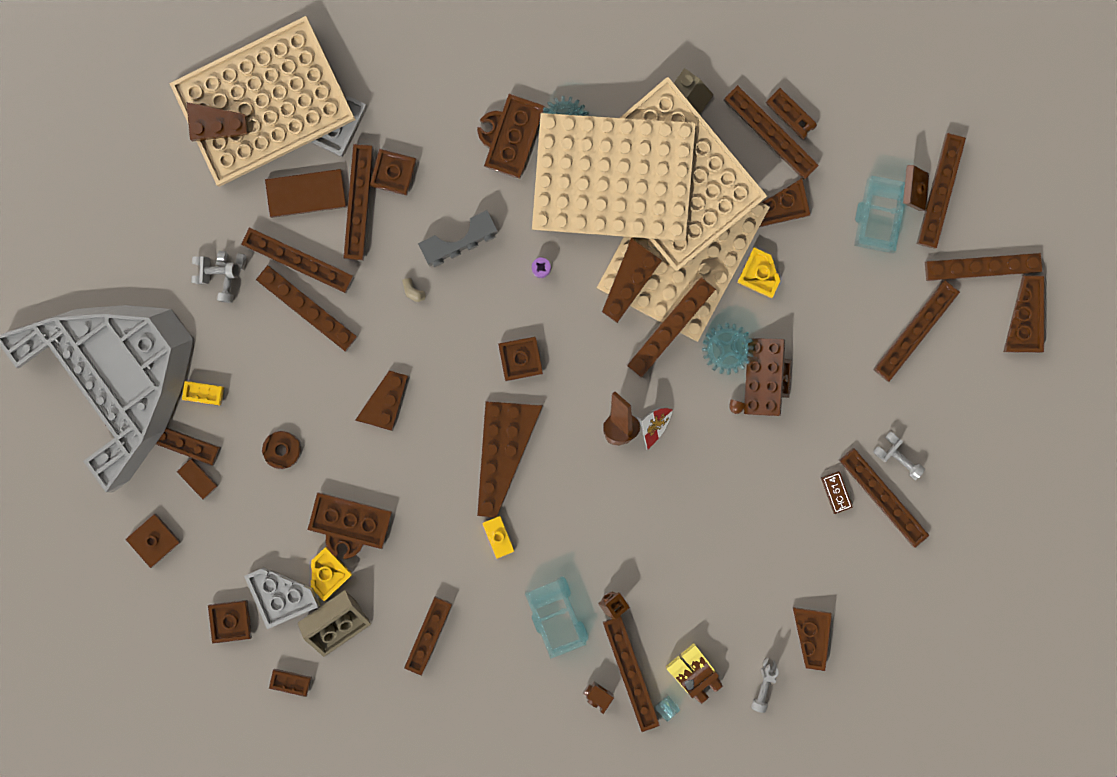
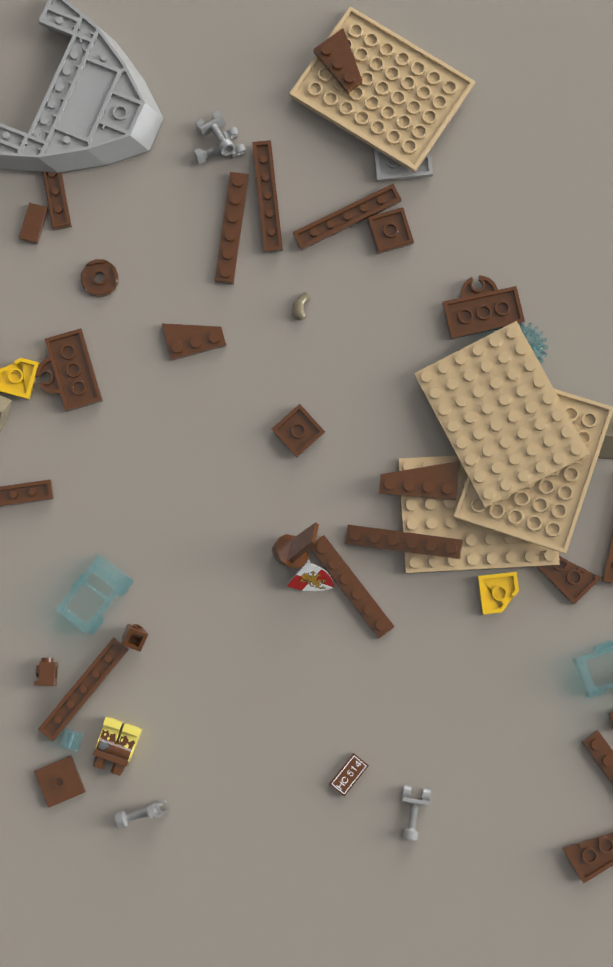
camera: 60 degrees right, 5 degrees down
(203, 393) = (108, 185): yellow plate -> none
(305, 193) = (328, 169): reddish brown tile -> none
(480, 229) = (387, 330): dark grey arch -> none
(498, 537) = (134, 503): yellow plate -> none
(504, 441) = (217, 460): reddish brown wing -> none
(543, 270) = (383, 402): medium lavender wheel -> none
(682, 394) = (351, 587): none -> reddish brown plate
(696, 738) = (60, 781): none -> reddish brown plate
(735, 353) = (415, 611): clear light blue gear -> none
(736, 406) = (370, 641): reddish brown hinge -> none
(767, 377) = (411, 651): reddish brown bracket -> none
(813, 633) = (211, 830): reddish brown wing -> none
(884, 497) = (369, 820): reddish brown tile -> none
(916, 331) = (532, 759): reddish brown tile -> none

